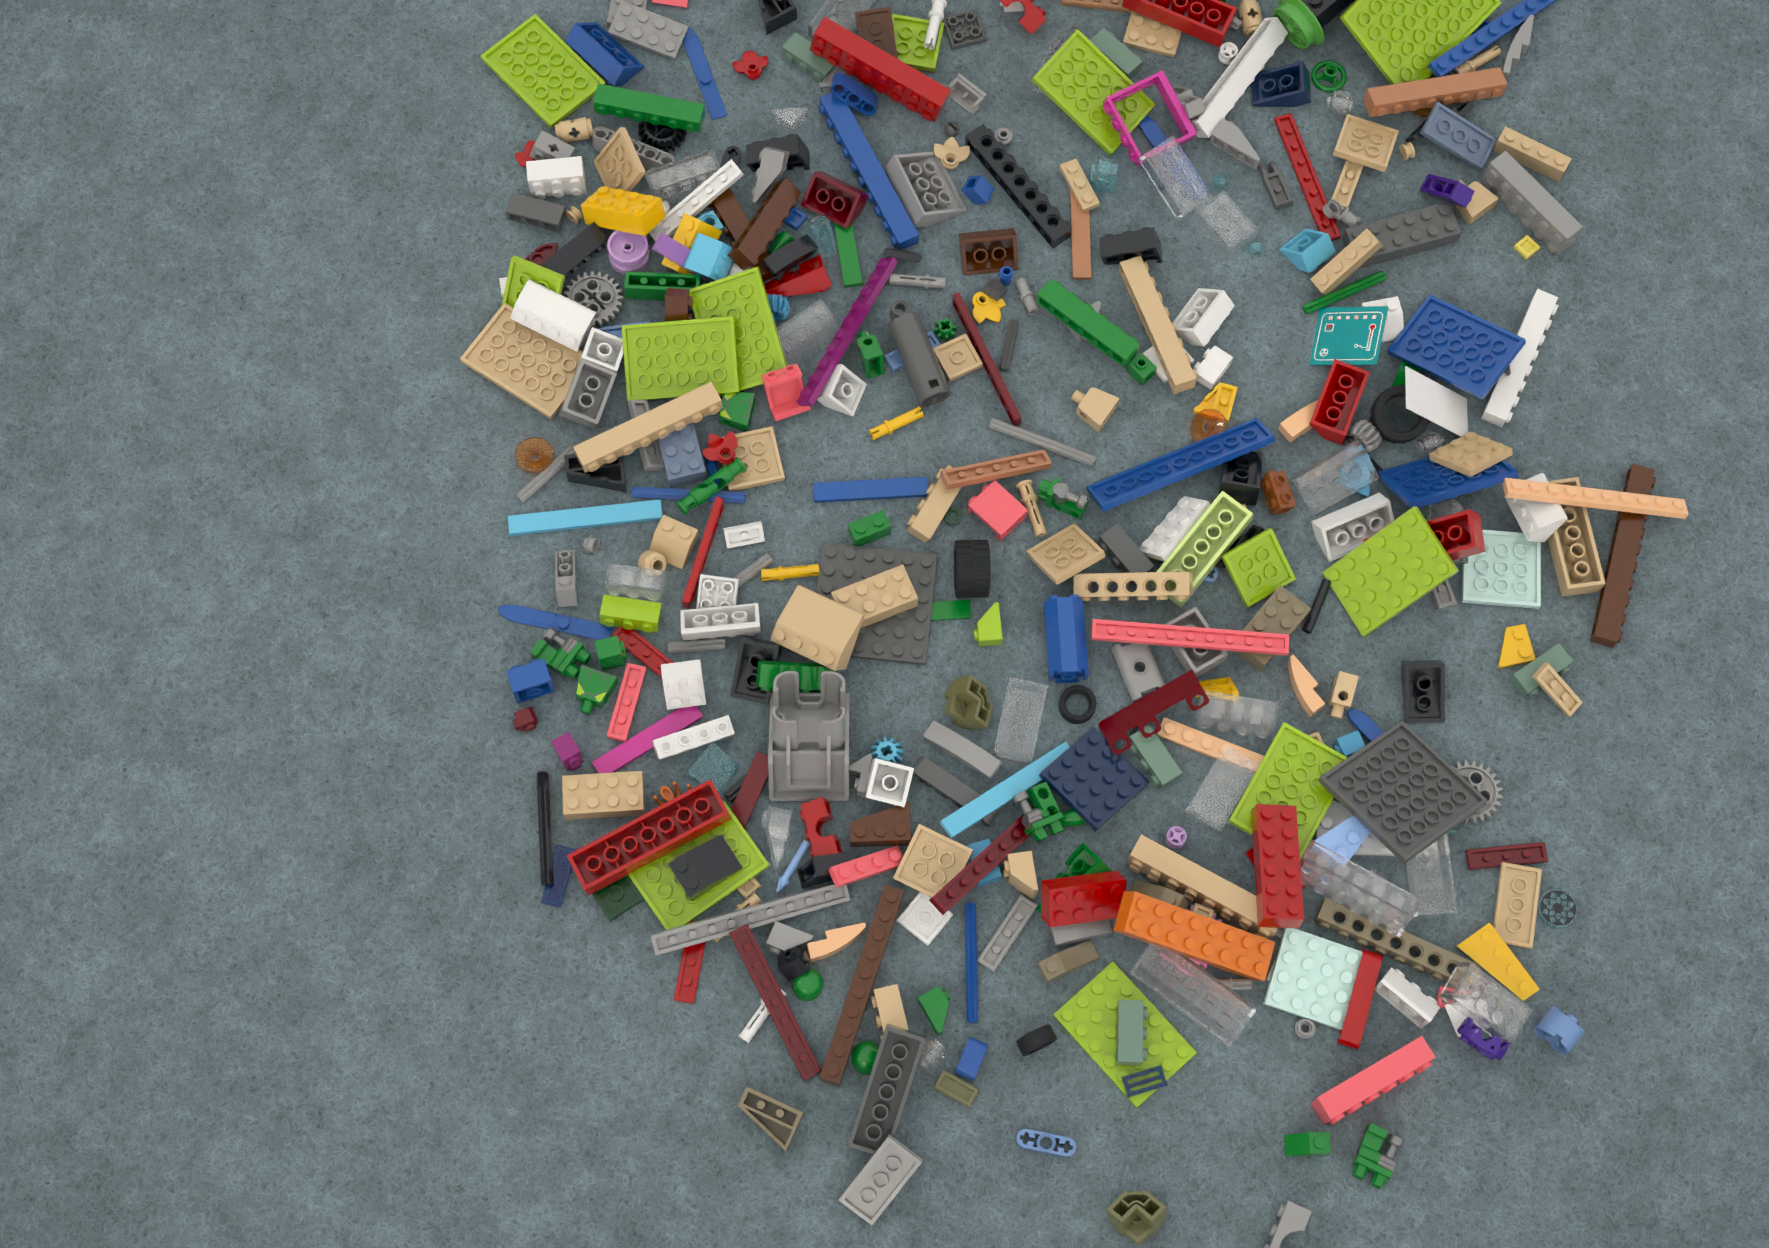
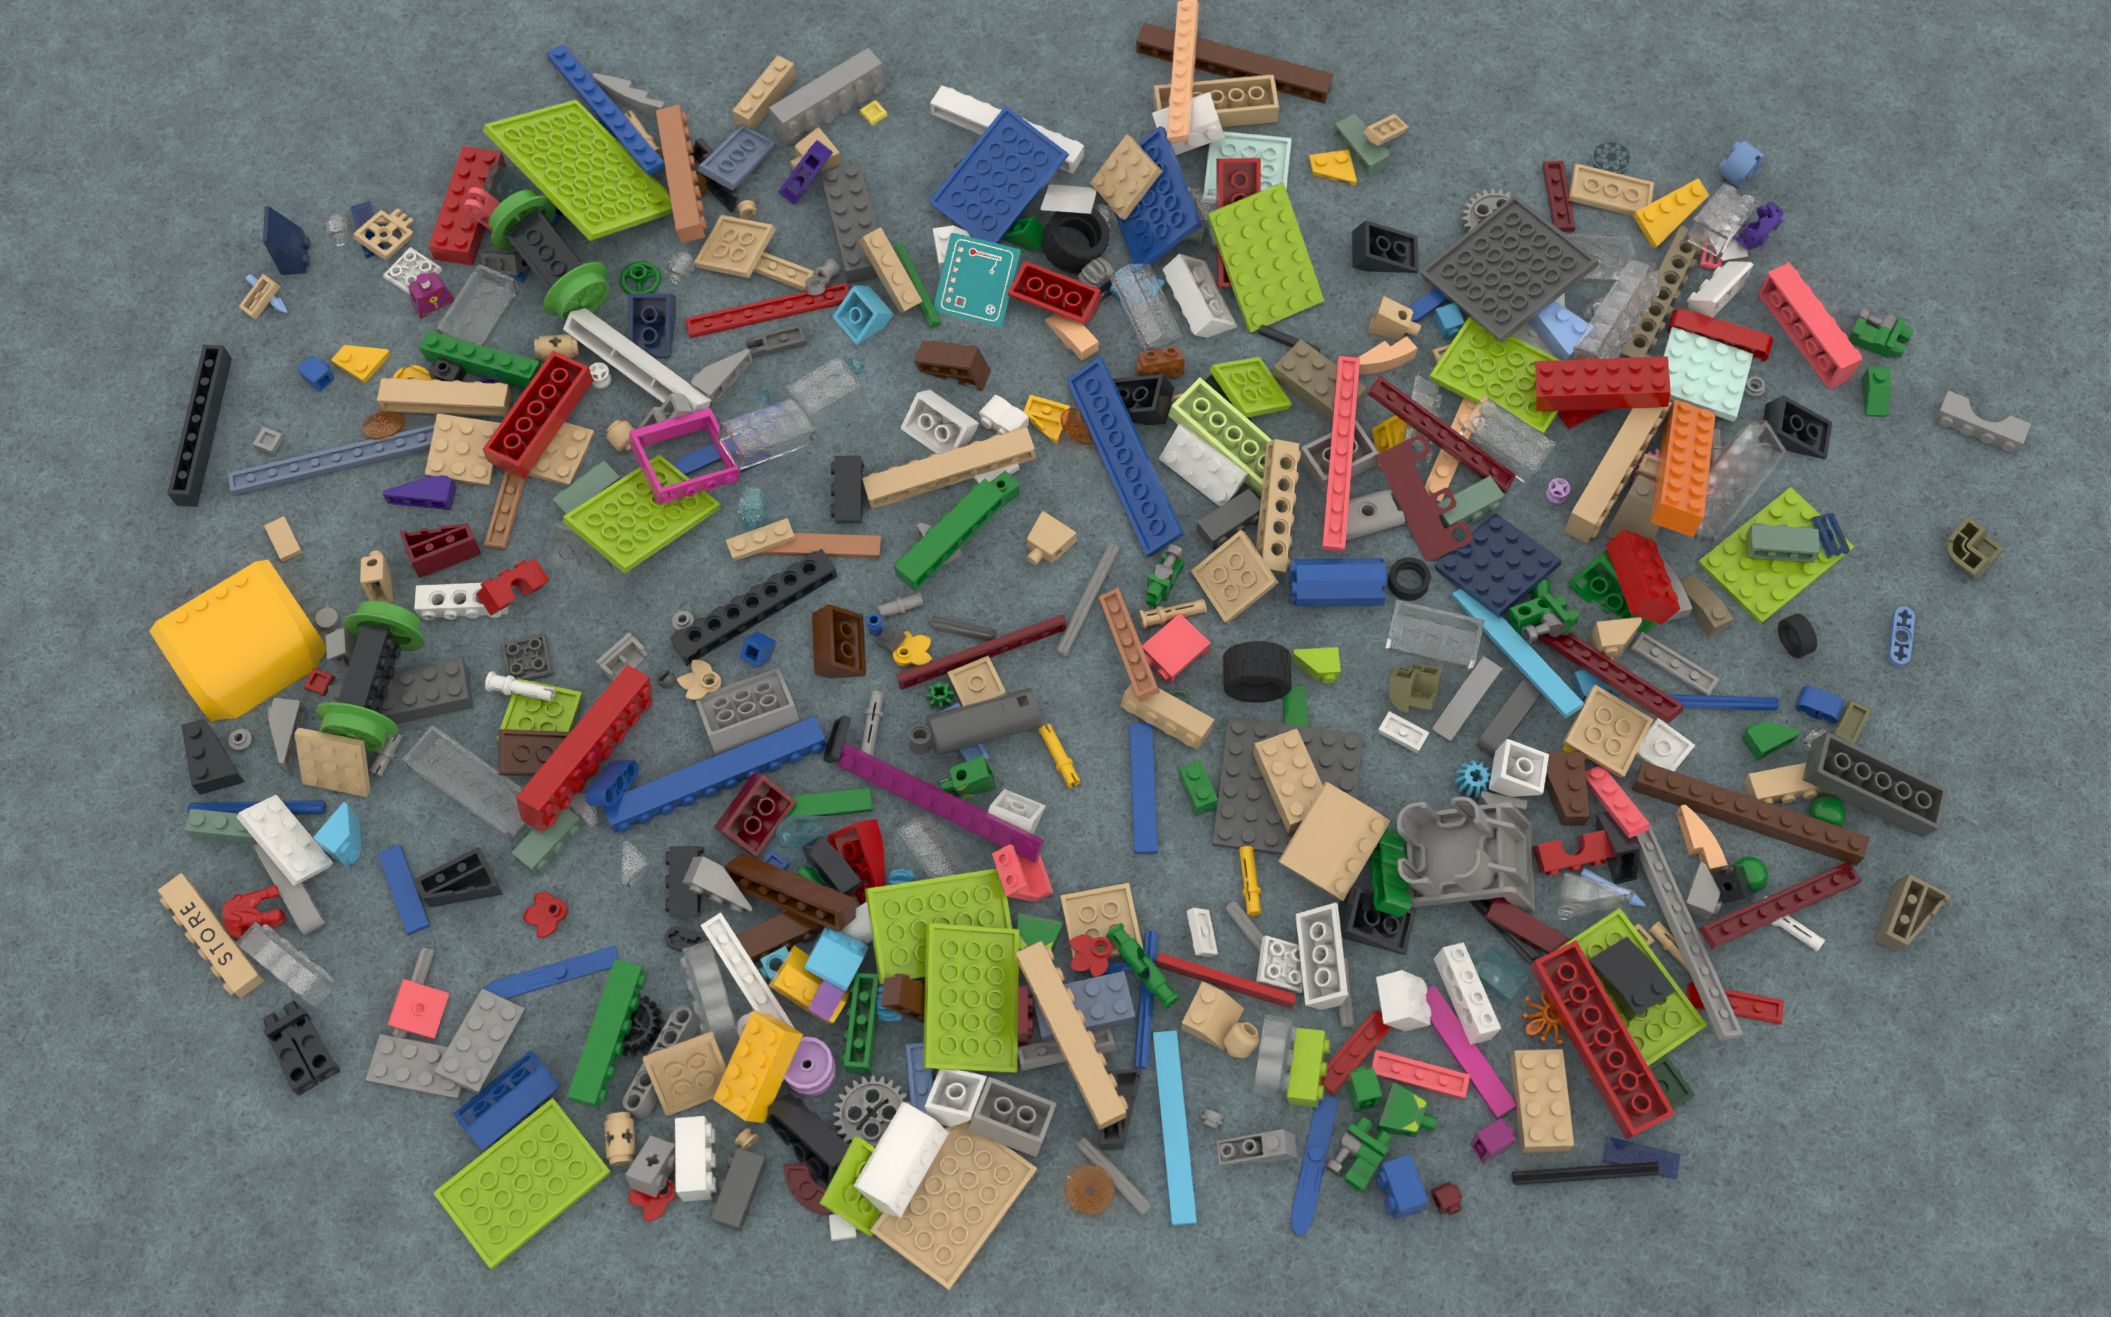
camera: 85 degrees left, 5 degrees down
(663, 395) = (1025, 1007): none -> dark red plate
(880, 1179) = (1970, 797): light grey plate -> none
(929, 696) = (1403, 732): none -> white plate
(1173, 72) = (619, 435): none -> tan head
(1216, 725) = (1440, 433): none -> dark red tile
(1259, 1063) = (1798, 427): none -> black slope
(1262, 323) = (953, 361): none -> reddish brown wedge

